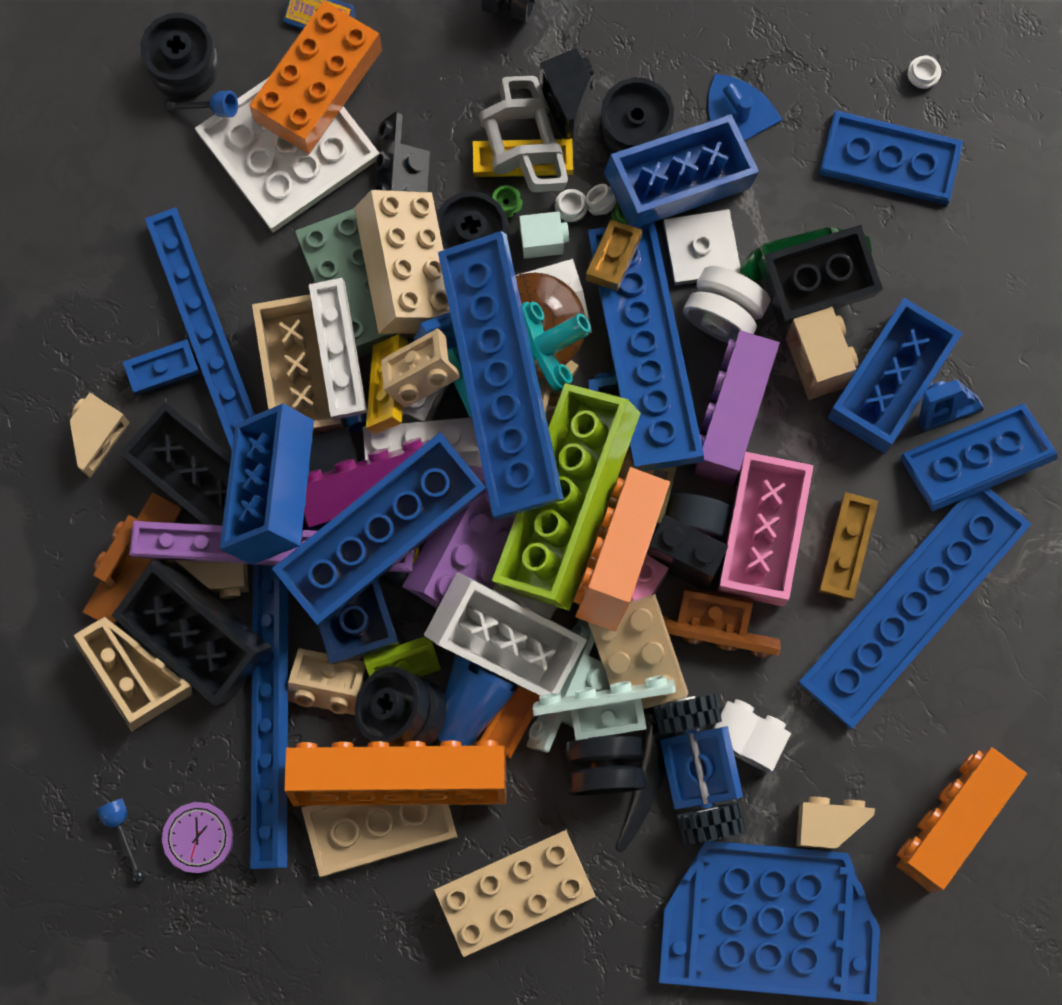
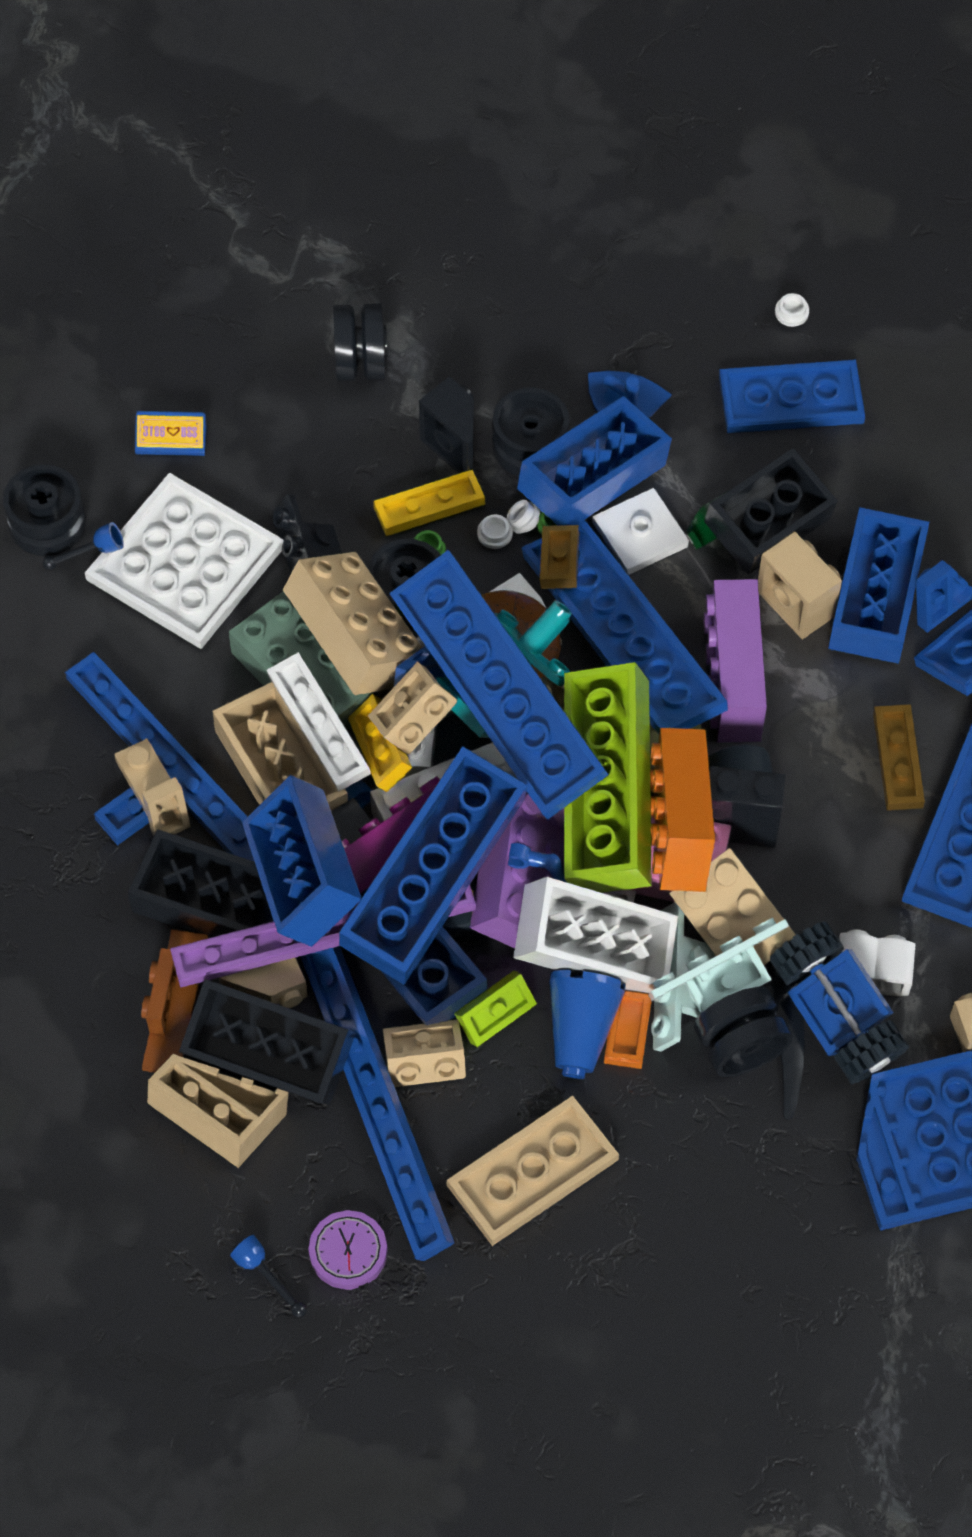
camera: 20 degrees left, 15 degrees down
(94, 431) = (89, 887): tan slope -> none
(179, 357) = (155, 790): none -> tan bracket
(316, 77) = (195, 485): orange brick -> none
(396, 774) = (537, 1105): orange brick -> none
(400, 708) = (514, 1045): black wheel -> none
(465, 547) = (522, 857): none -> blue arm
(514, 893) = (700, 1189): tan brick -> none
(524, 155) = (431, 494): light grey bar -> none
(543, 234) = (482, 562): light aqua brick -> none
(719, 620) = (800, 862): dark orange bracket -> none
(725, 304) = (685, 568): white wheel -> none
(765, 529) = (811, 747): bright pink brick -> none

